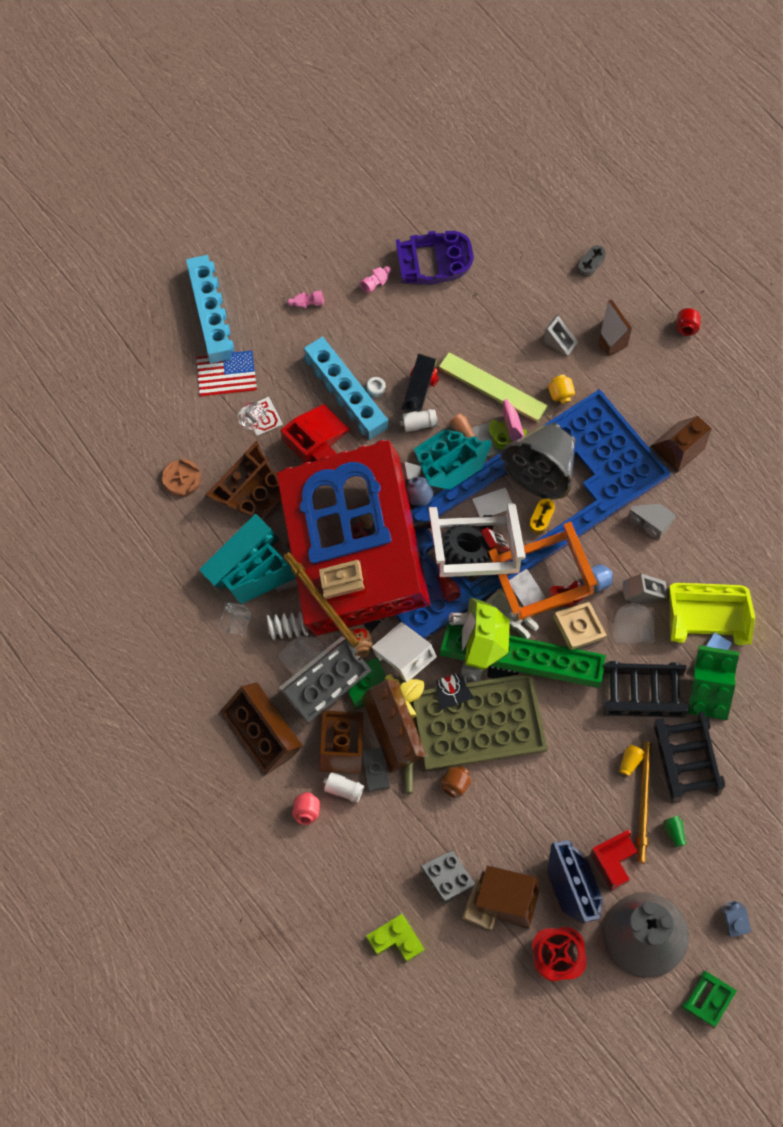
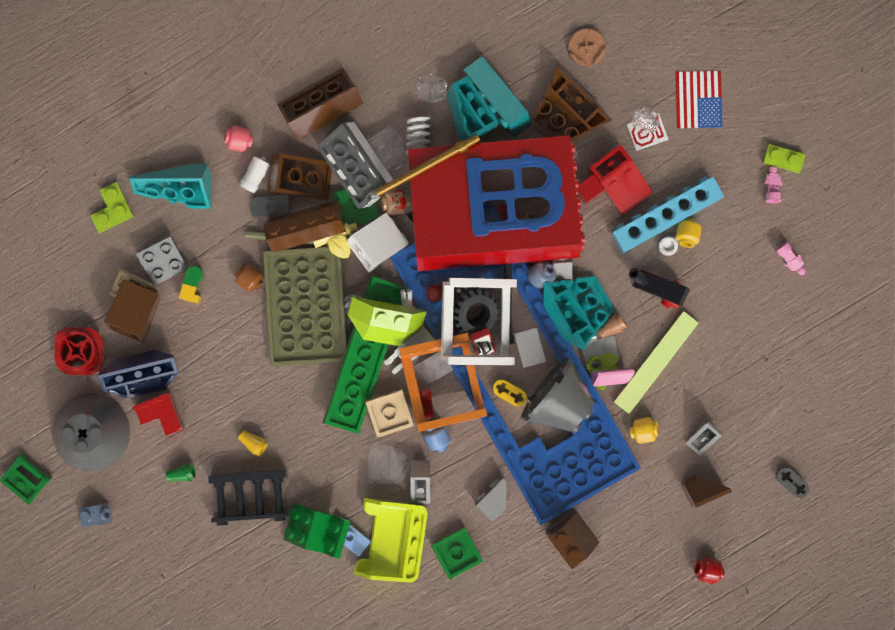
camera: 90 degrees right, 20 degrees up
(216, 350) = (818, 76): medium azure brick -> none
(279, 293) = (784, 158): none -> lime plate
(341, 579) = (442, 185): tan plate -> none
(362, 367) = (688, 232): none -> yellow head
(362, 863) = (181, 184): none -> teal wedge
(418, 420) = (623, 284): white piece -> none
(452, 254) = (810, 340): dark purple slope -> none
(452, 691) = (336, 284): black sticker -> none
(467, 629) = (389, 304): white sticker -> none
(470, 842) = (190, 285): none -> leg
(635, 707) = (302, 473): black fence -> none
(642, 840) = (175, 441): pearl gold bar -> none
(711, 549) = (457, 553): none -> green plate

